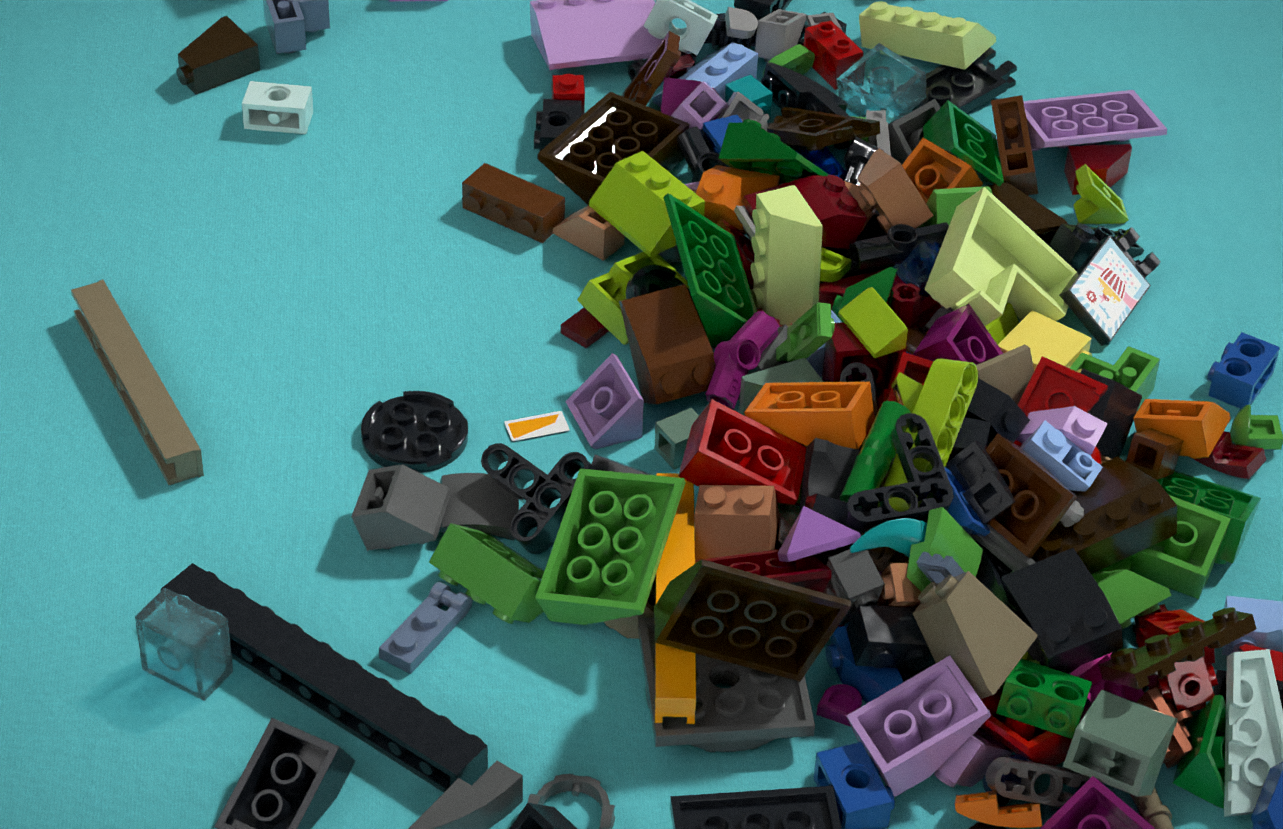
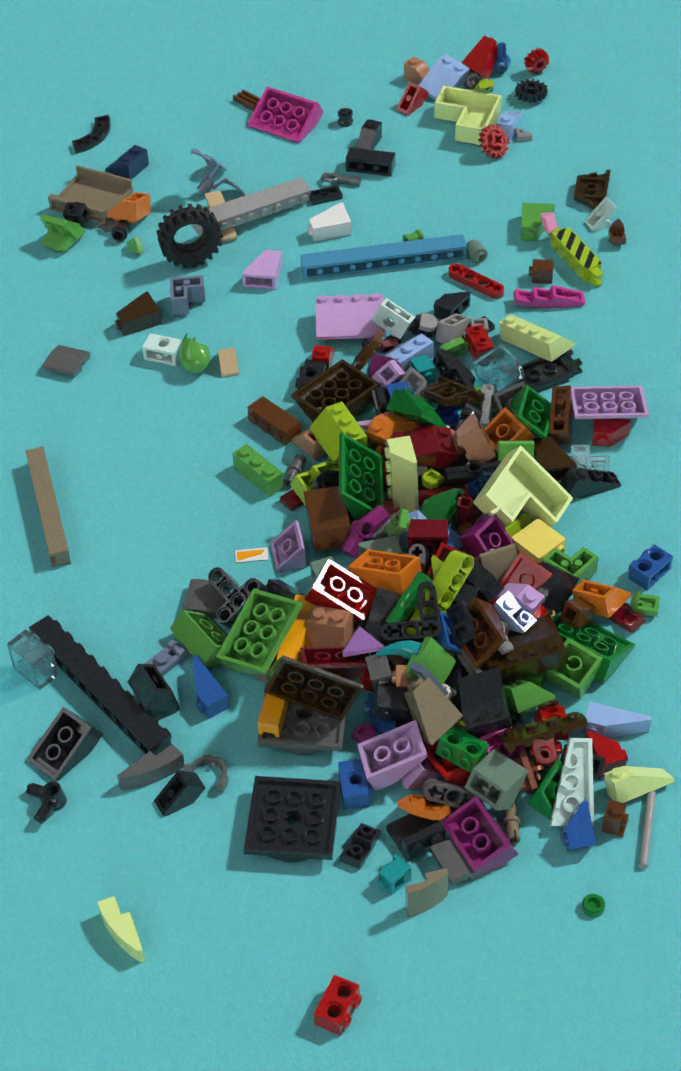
camera: 15 degrees right, 5 degrees up
(102, 139) = (66, 360): none -> dark grey slope
(339, 109) = (193, 355): none -> bright green helmet
(399, 508) = (162, 596): dark grey slope -> none
(400, 117) = (228, 362): none -> tan slope
(414, 431) = (185, 551): black tile -> none
(432, 667) = (152, 689): none -> black slope
(510, 284) = (258, 470): none -> bright green brick
(534, 665) = (209, 693): none -> blue slope
(573, 279) = (294, 469): none -> dark grey pin
(874, 323) = (431, 523): lime slope -> none
(1072, 209) = (581, 456): none -> clear brick
(1098, 201) = (601, 447): lime slope -> none
(1109, 285) = (588, 507): tile -> none

